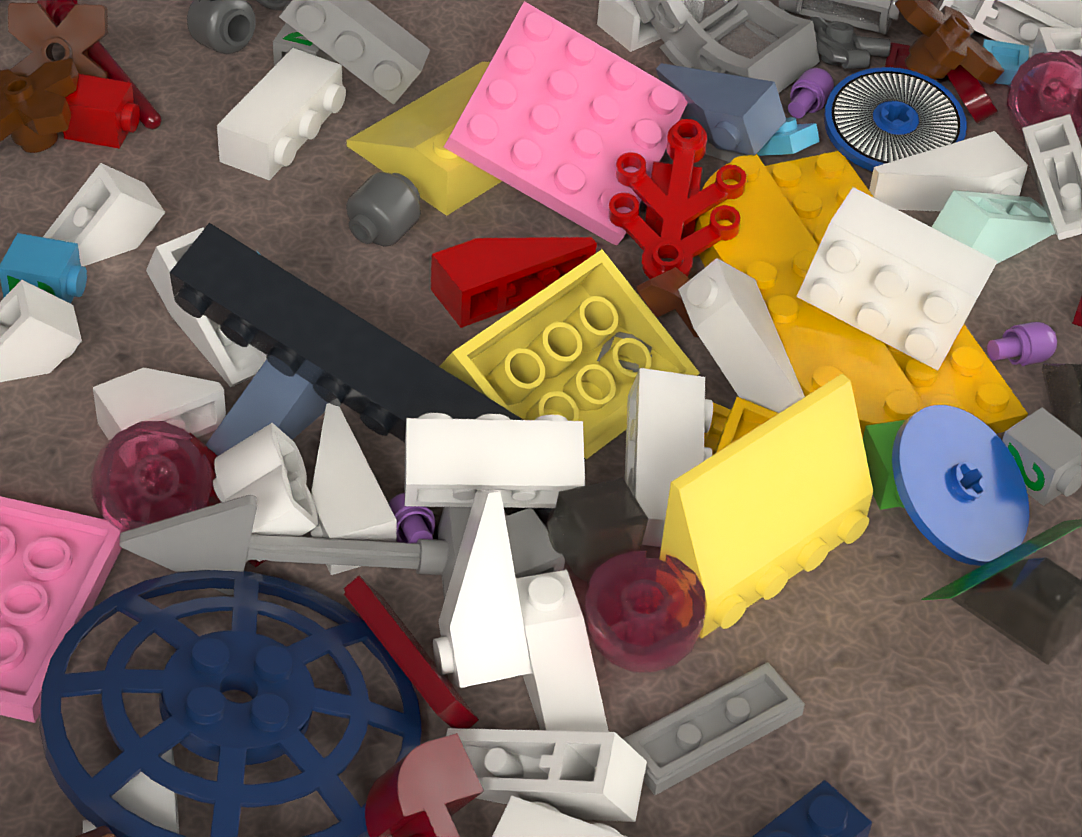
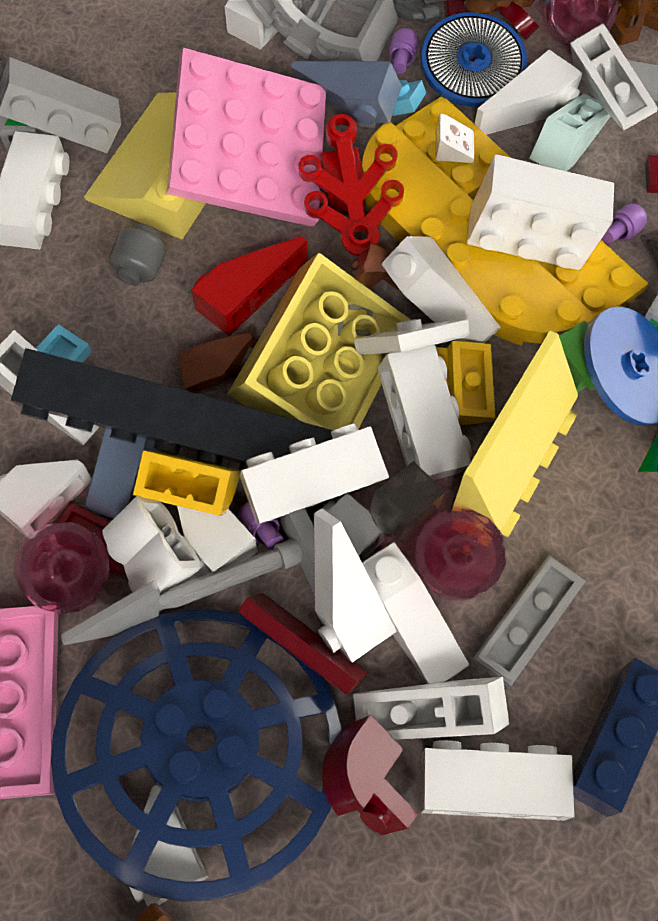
camera: 15 degrees left, 20 degrees up
(339, 427) = (186, 482): none -> yellow brick
(435, 336) = (214, 361): none -> copper slope
(720, 371) = (411, 336): none -> white plate
(824, 189) = (454, 141): none -> white slope

